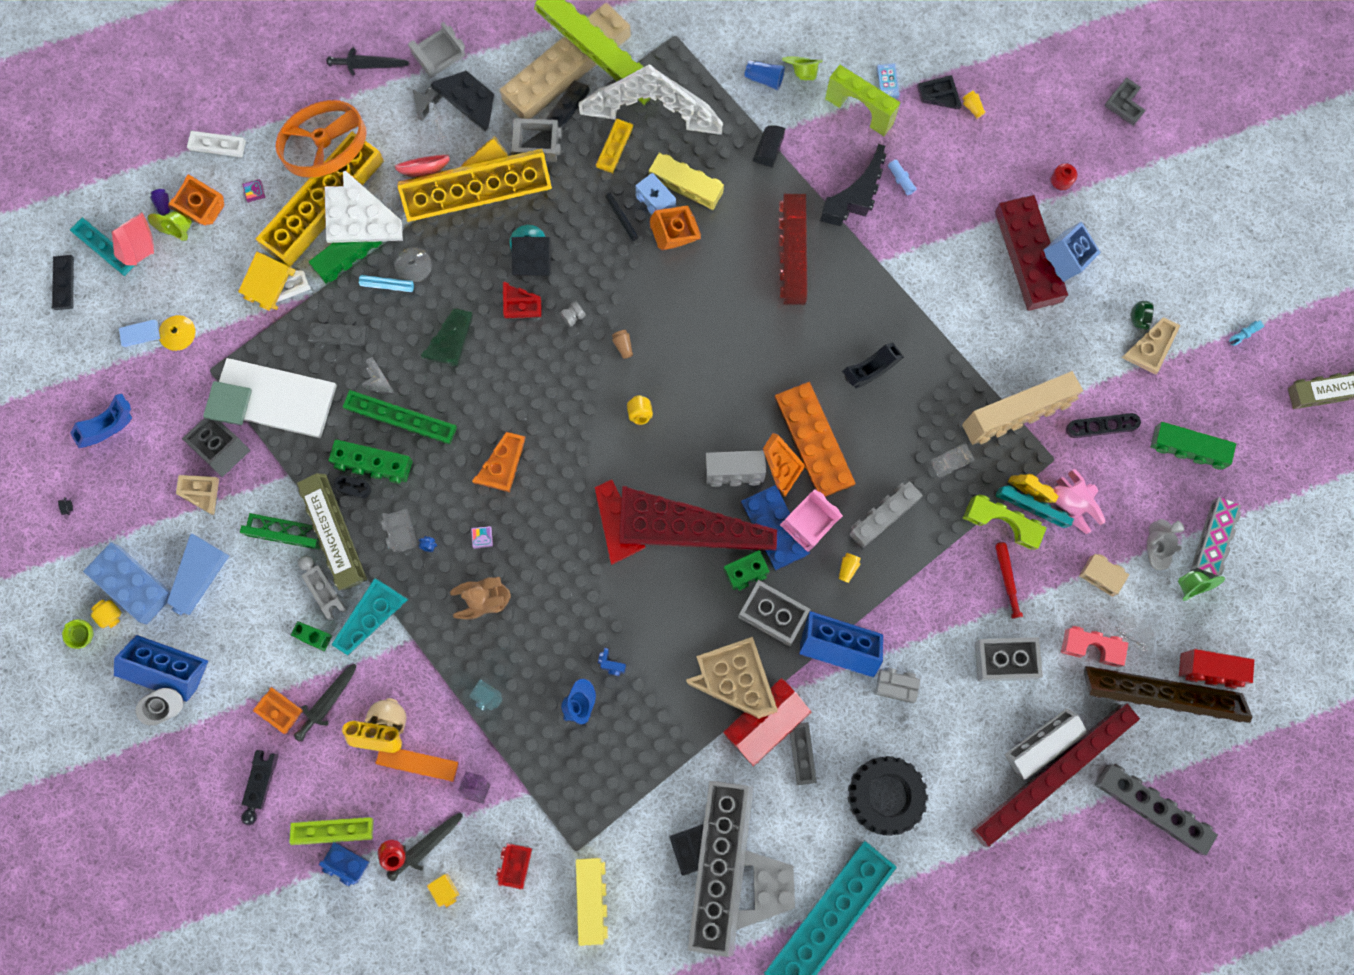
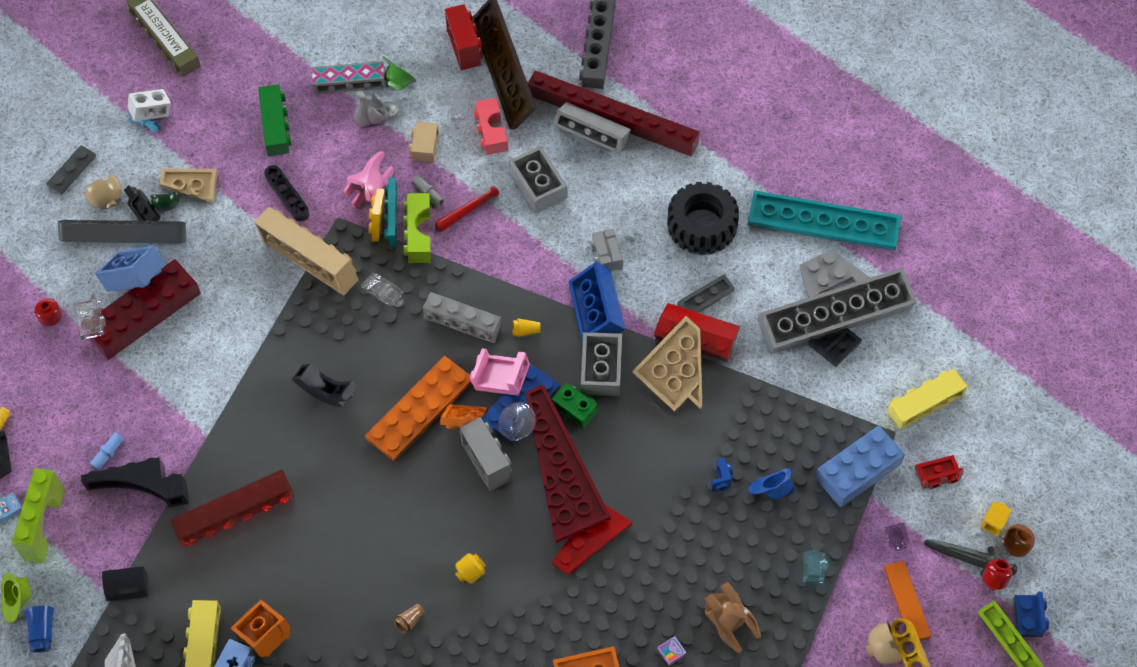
camera: 115 degrees left, 15 degrees down
(406, 894) = (1022, 535): none -> dark orange hair
(554, 792) = (859, 466): none -> medium blue brick
(752, 515) = (521, 426): none -> clear dish
(1034, 200) = (89, 318): none -> clear bracket
(1045, 552) = (424, 187): none -> light grey pin
(1123, 266) = (122, 231): none -> dark grey beam
(1145, 292) = (141, 205): none -> black hinge
(1173, 265) = (103, 193): none -> tan cylinder
(1216, 251) = (71, 170): none -> dark grey plate
(1255, 339) = (148, 105): none -> white brick

